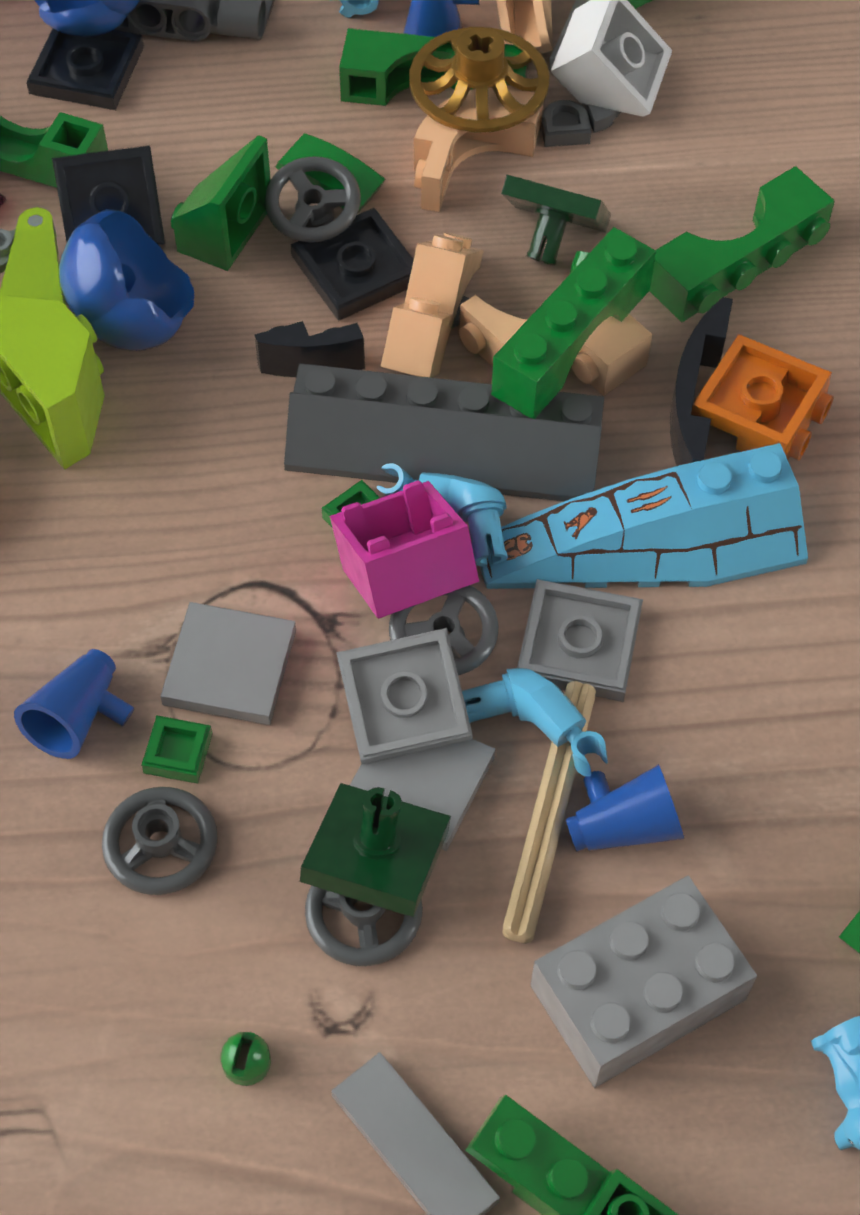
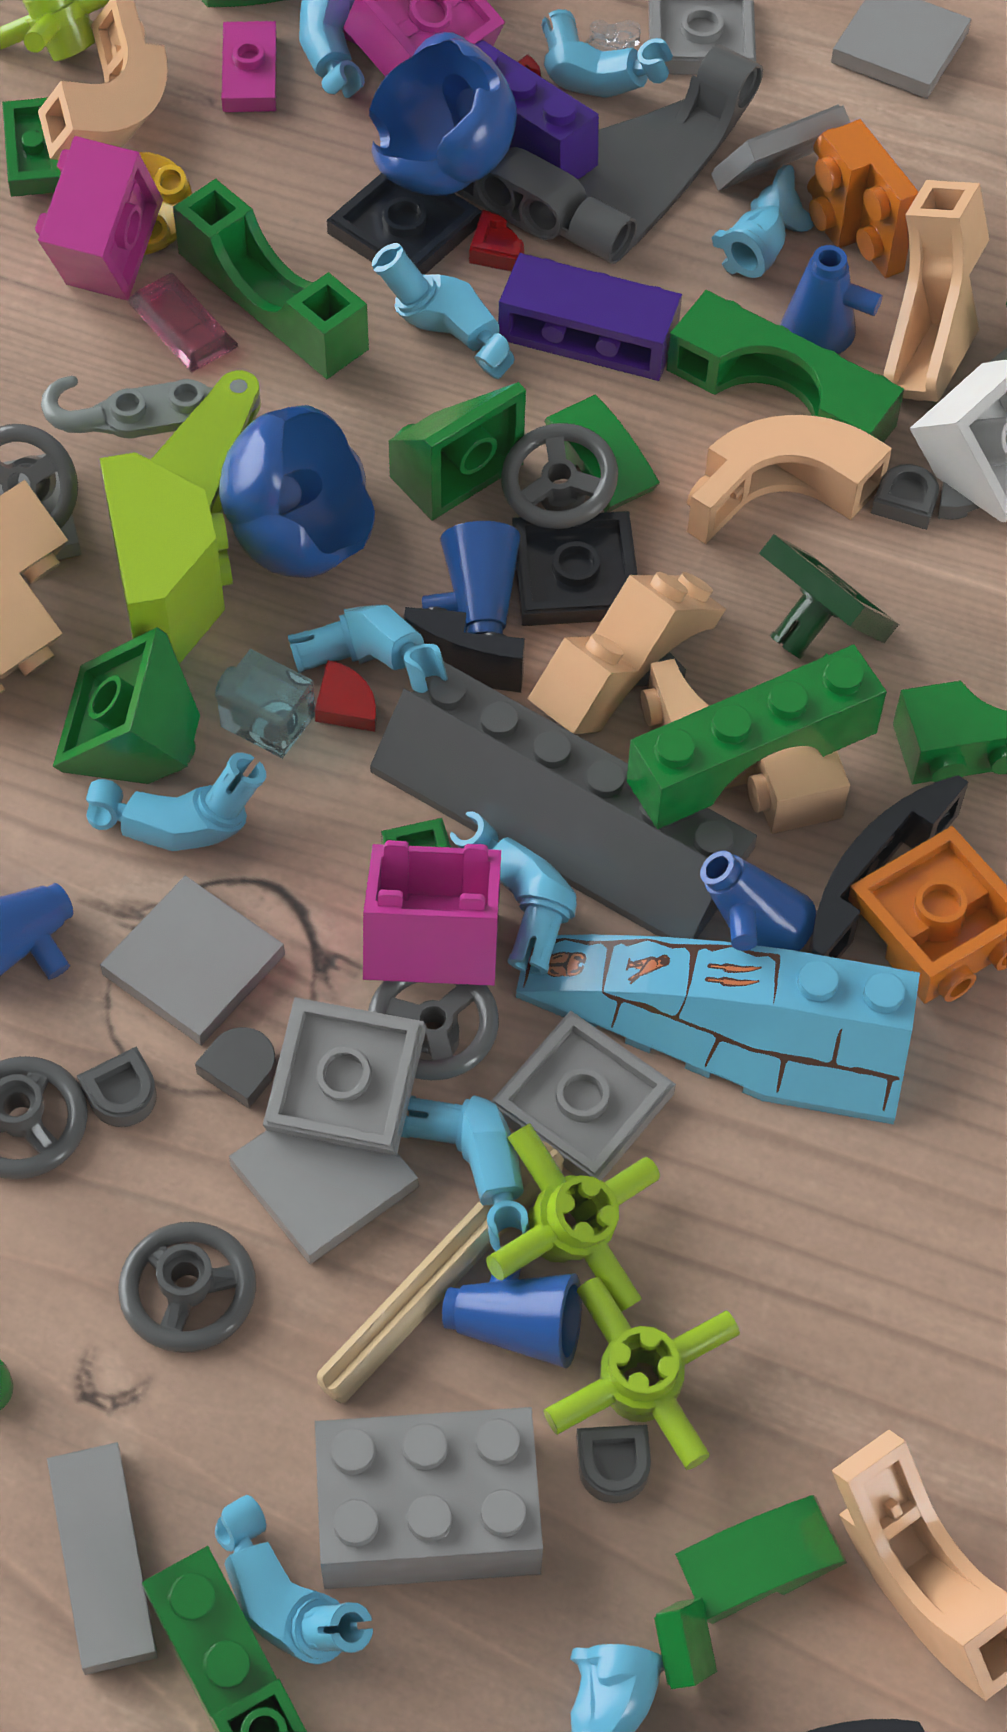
camera: 25 degrees right, 0 degrees up
(78, 498) = (130, 714): none -> green slope
(112, 181) = (343, 377): black tile -> none
(156, 111) = (444, 306): none -> medium azure arm
(164, 564) = (184, 822): none -> medium azure arm
(166, 57) = (495, 243): none -> red tile
(177, 749) = (89, 1028): green tile -> none
(180, 448) = (265, 702): none -> clear light blue brick
(227, 784) = (120, 1089): none -> dark grey tile
(237, 363) = (368, 635): none -> medium azure arm
(239, 423) = (345, 699): none -> red tile
(267, 80) = (588, 316): none -> dark purple brick
(291, 289) = (481, 571): none -> blue piece
(310, 725) = (239, 1064): none -> dark grey tile
(375, 849) = (223, 1227): dark green tile -> none
(479, 66) = (823, 392): pearl gold wheel -> none
(585, 1119) = (285, 1614): none -> medium azure arm
(633, 725) = (591, 1204): none -> lime bar
(636, 444) = (757, 904): none -> blue piece
(753, 891) = (614, 1461): none -> dark grey tile
(755, 799) = (634, 1397): none -> lime bar

